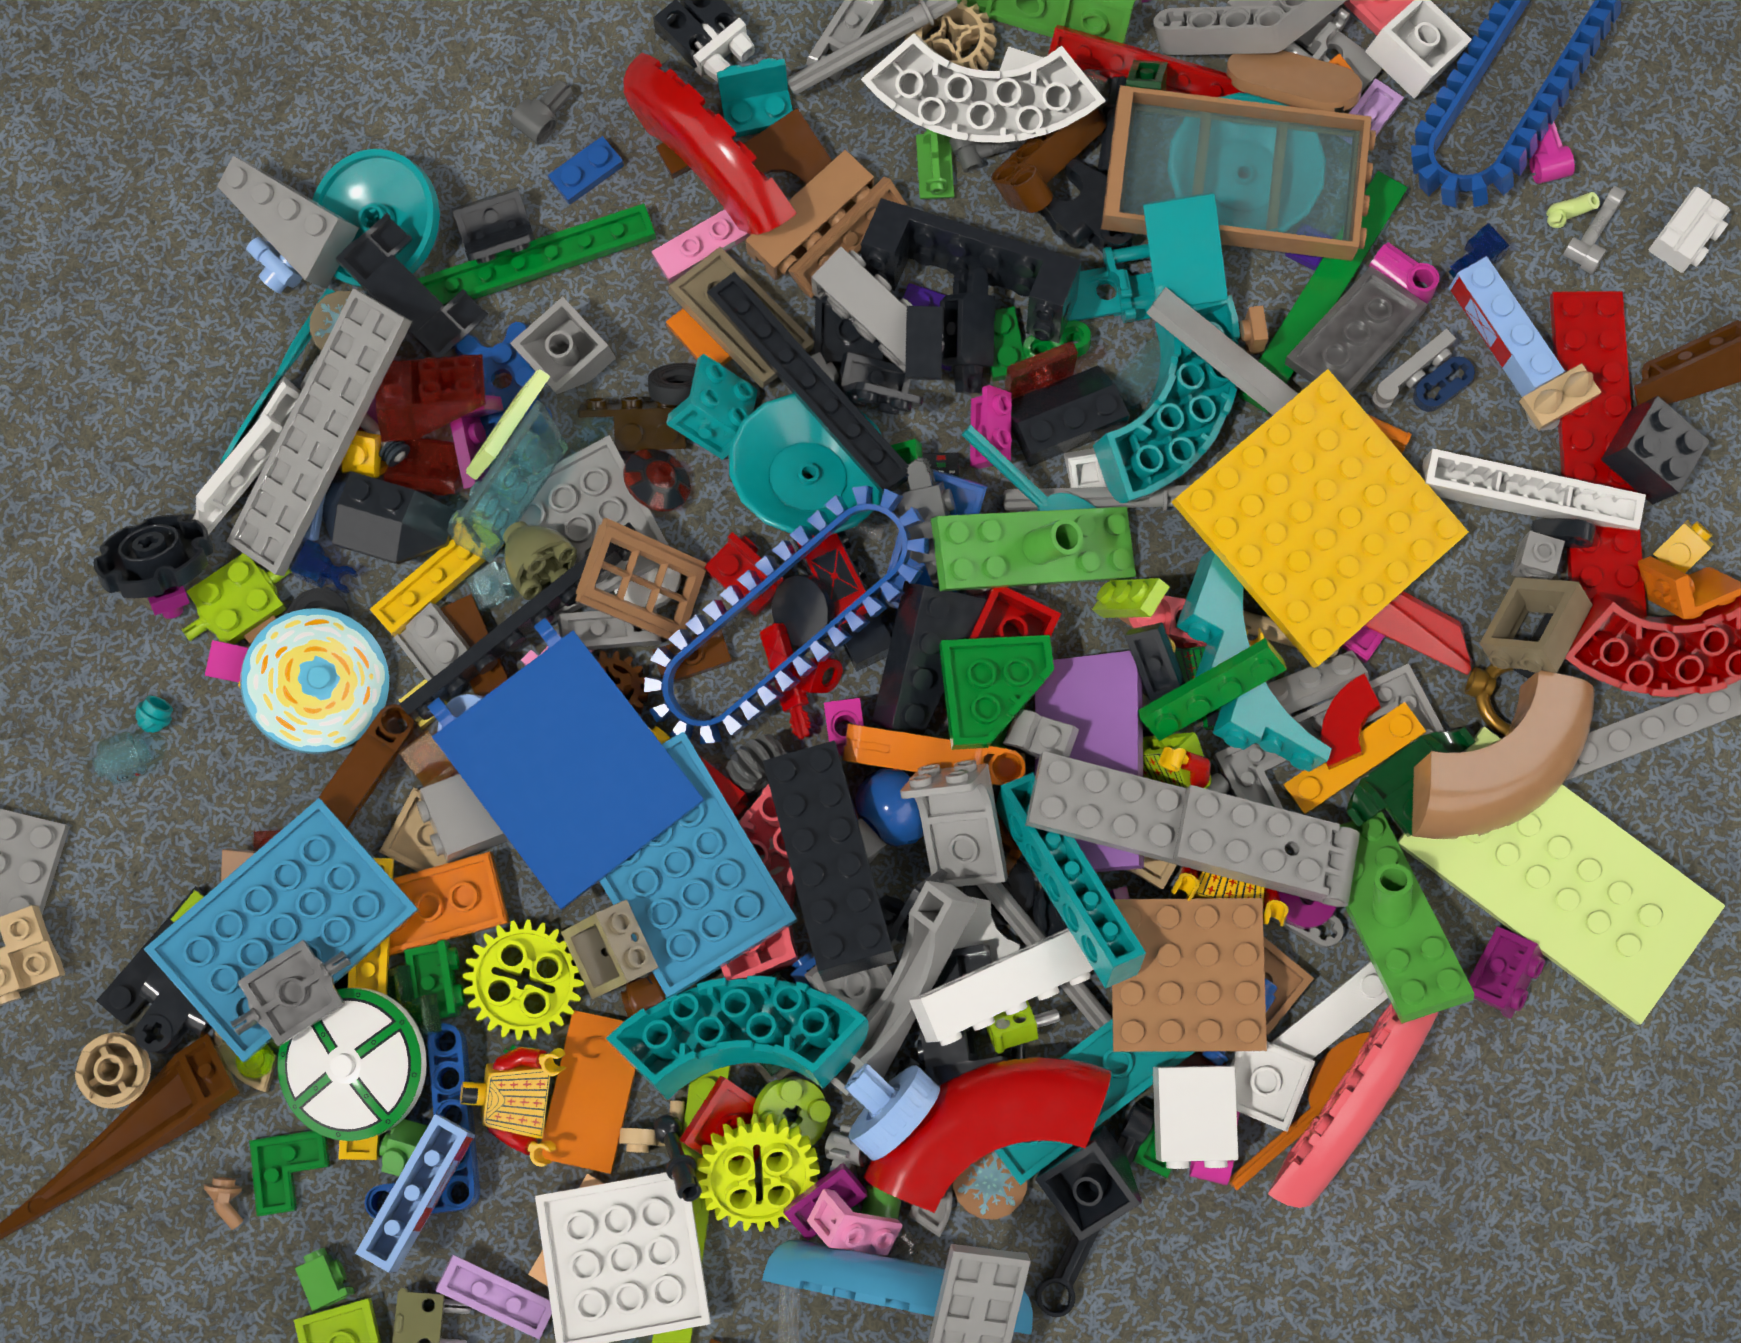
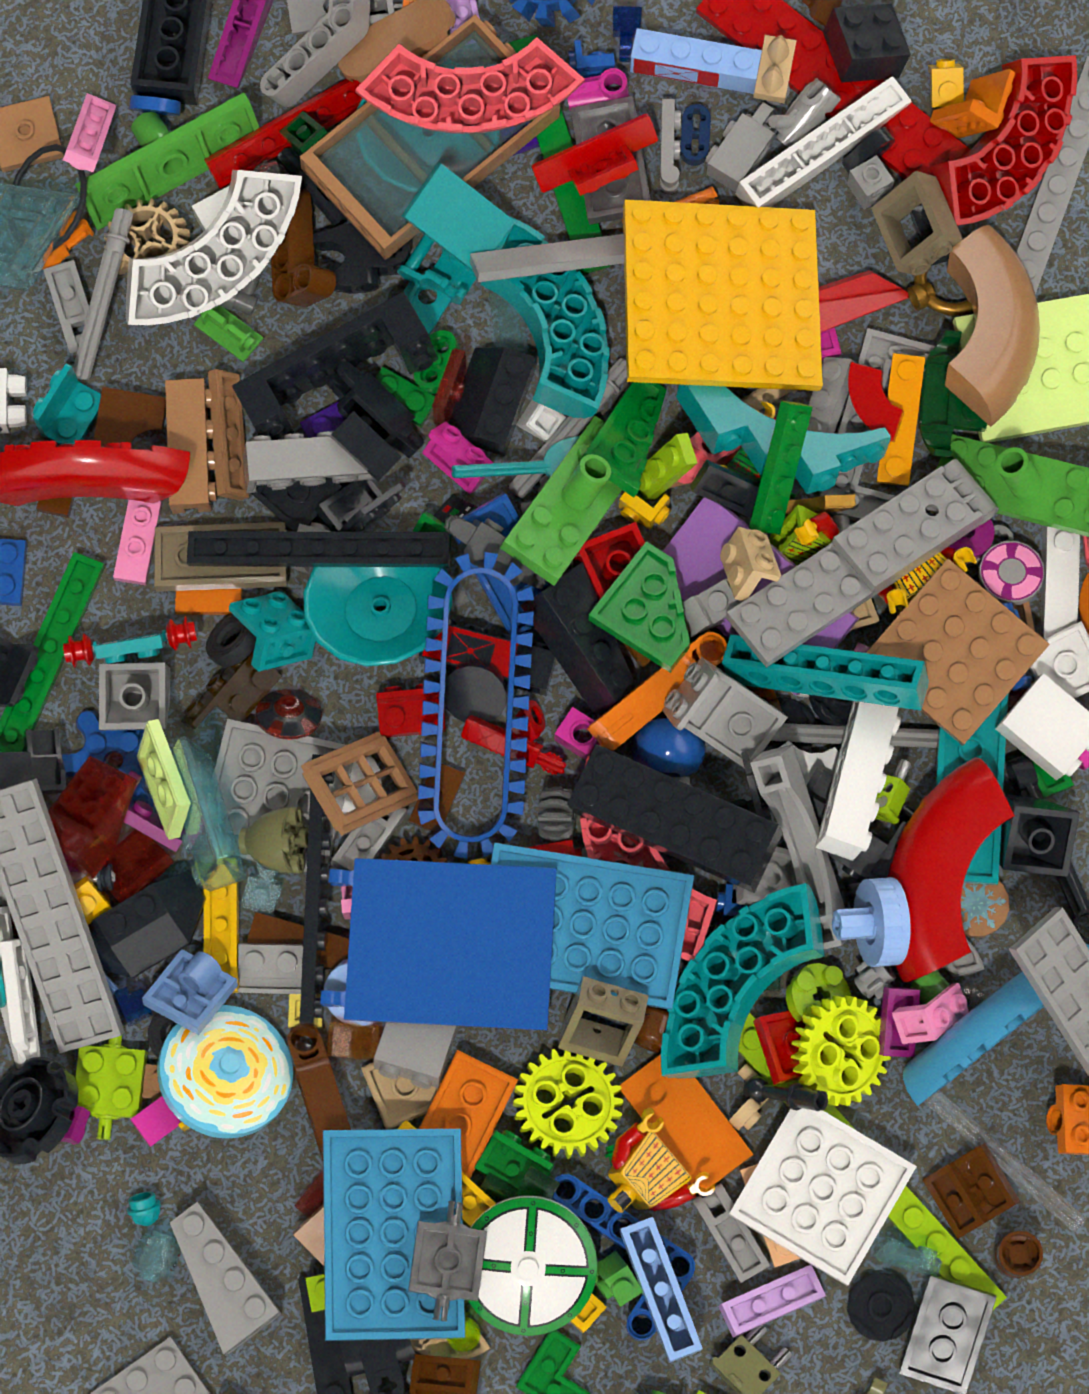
camera: 50 degrees left, 0 degrees up
(143, 827) = (226, 1286): none -> light grey wedge
(355, 596) = (190, 990): none -> medium blue plate
(520, 1222) = (731, 1235): none -> light grey plate
(609, 317) = (117, 650): none -> plate
(1077, 609) = (639, 511): none -> yellow bracket
(1106, 731) = (747, 560): none -> tan bracket
(1129, 545) = (629, 434): none -> green wing
(1217, 754) = (824, 503): none -> pearl gold tile
(1254, 330) = (550, 223): medium nougat plate -> none
(1295, 170) = (472, 97): none -> coral brick
(1305, 965) = (1011, 572): none -> tile
(1344, 320) = (598, 159): none -> red bracket
(1421, 249) = (590, 65): none -> blue bracket
(1468, 429) = (742, 149): none -> light grey hinge
(1546, 452) = (804, 113): none -> light grey piece

